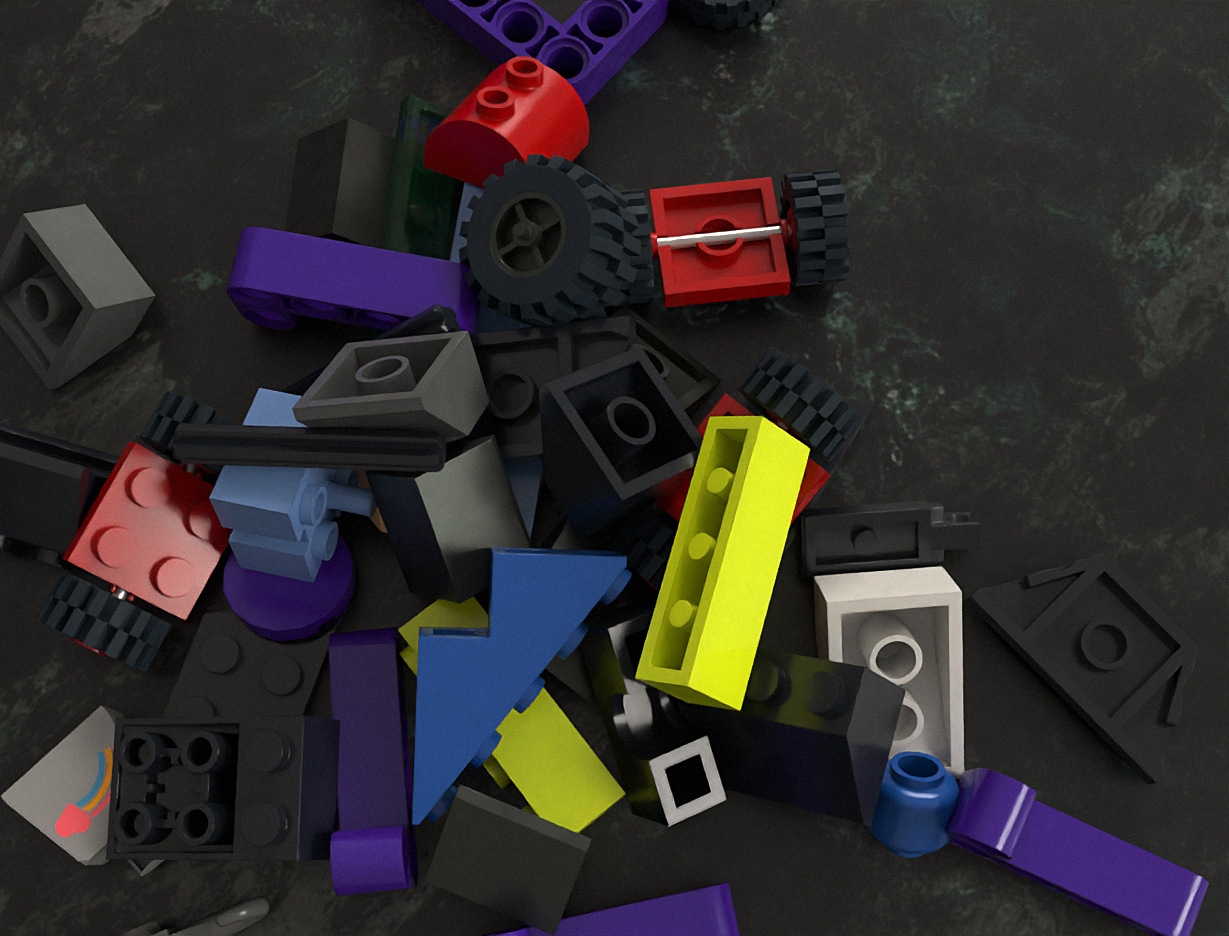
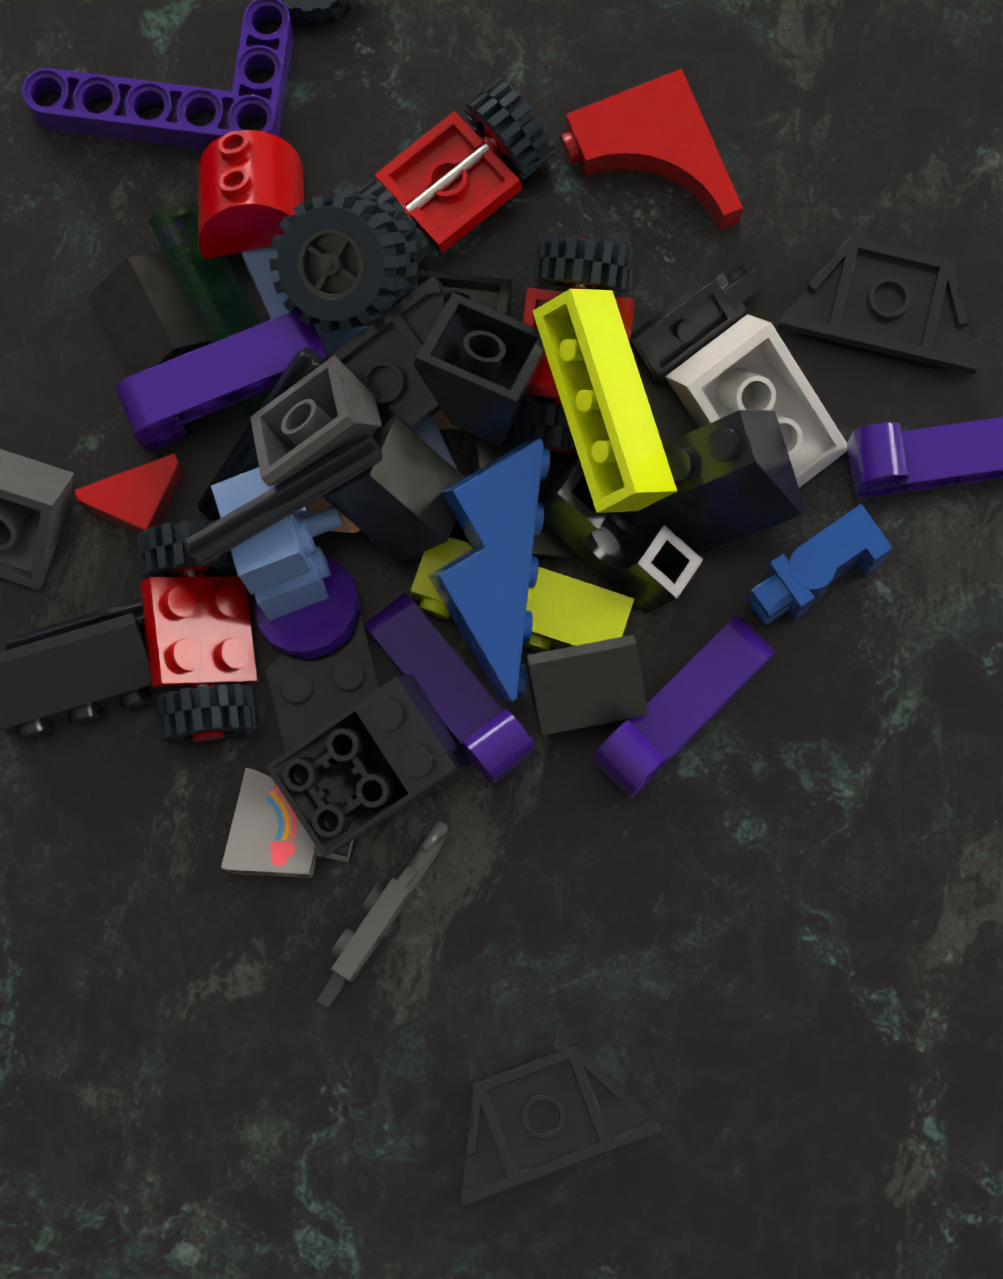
camera: 30 degrees left, 5 degrees up
(203, 358) = (134, 497): none -> red slope
(849, 888) = (816, 563): none -> blue hips
(914, 805) = (827, 484): blue head -> none
(965, 323) = (654, 132): none -> red arch

